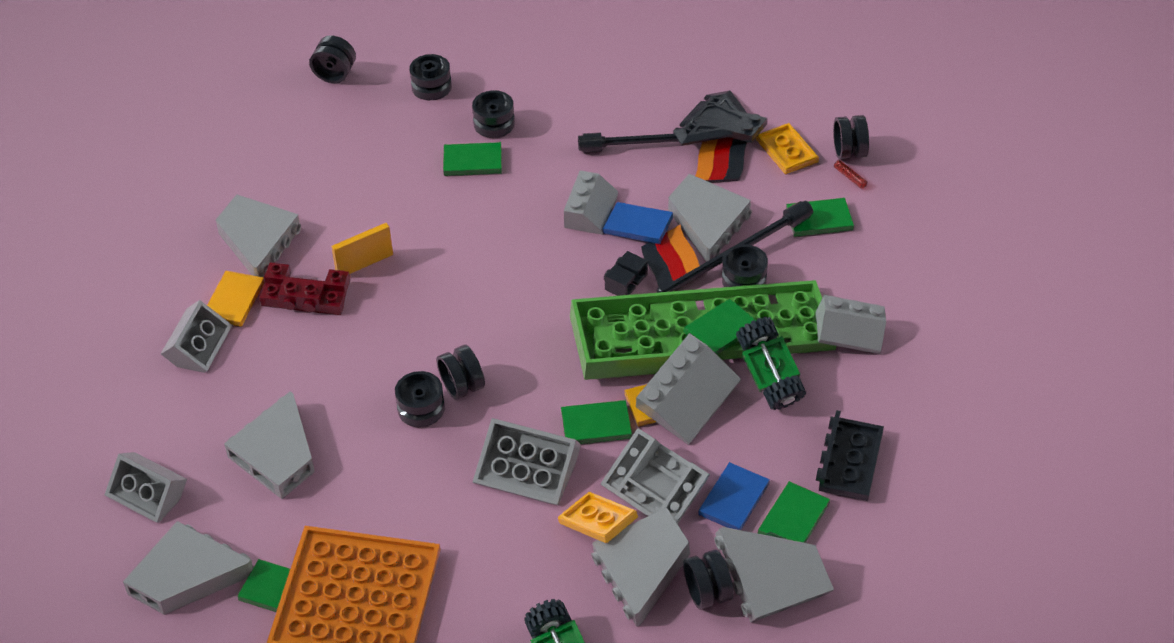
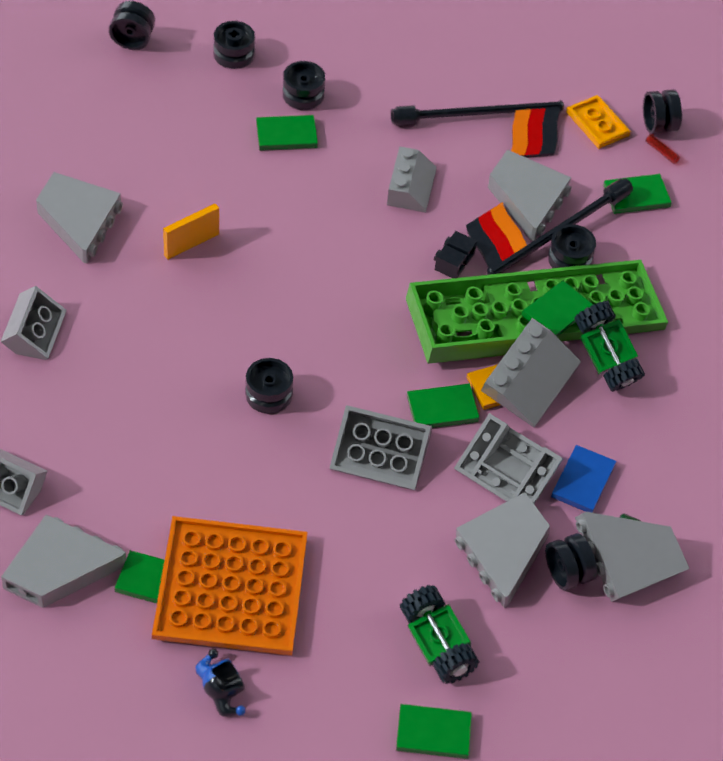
camera: 10 degrees left, 5 degrees up
(235, 296) = (66, 279): light orange tile -> none
(274, 448) = (130, 437): light grey slope -> none
(304, 294) = (136, 277): dark red bracket -> none
(460, 371) = (307, 357): black wheel -> none
(597, 517) = (458, 502): light orange tile -> none
(638, 222) = (461, 200): blue tile -> none
(719, 118) = (529, 91): black plate -> none
(795, 513) = (643, 494): green tile -> none
(849, 457) = (690, 438): black bracket -> none
(851, 324) = (680, 304): light grey slope -> none

